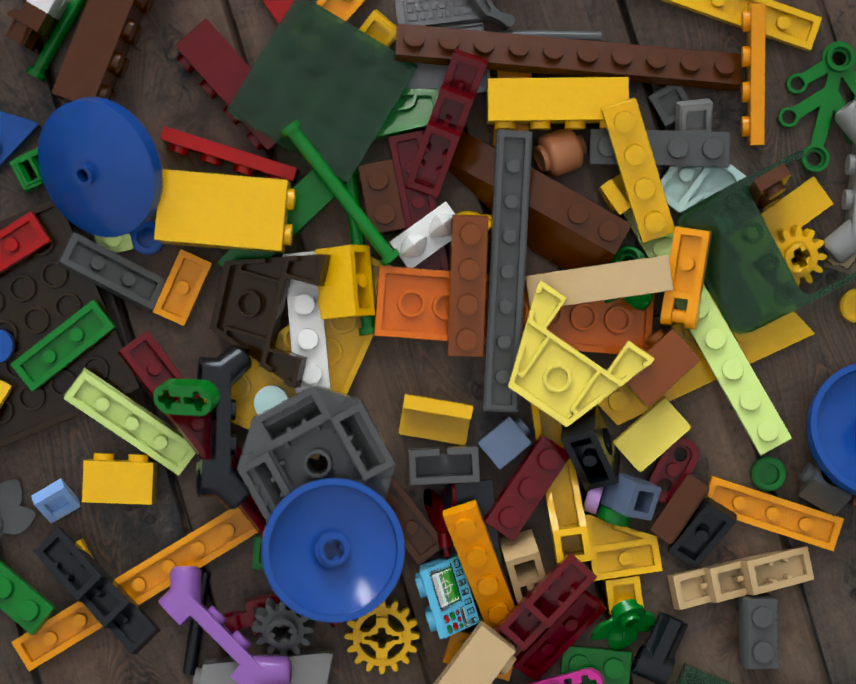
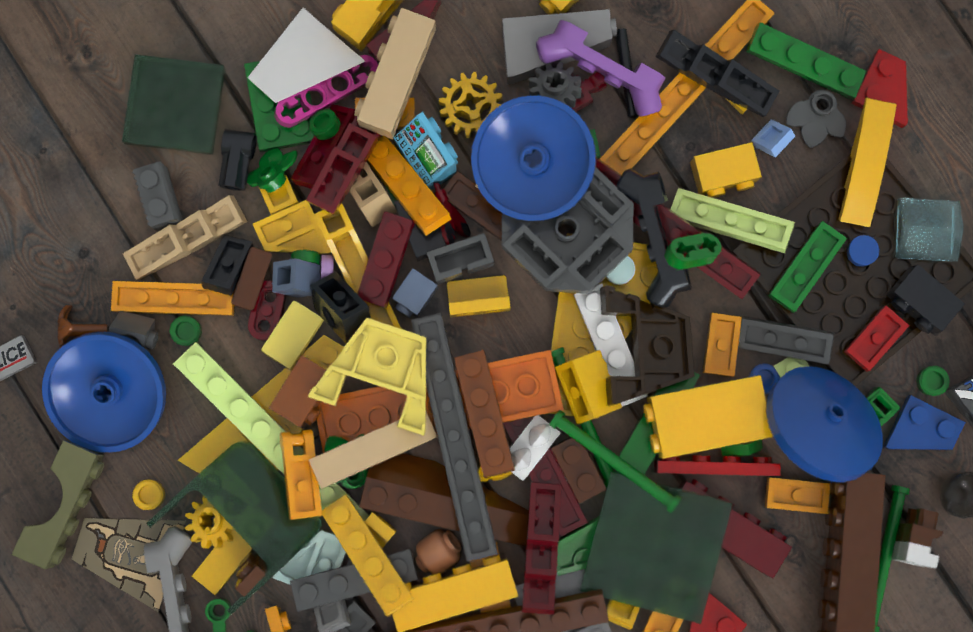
camera: 165 degrees right, 5 degrees down
(151, 100) = (797, 495): none -> light orange plate
(195, 165) = (742, 449): none -> green tile
(551, 659) = (324, 124): none -> green tile

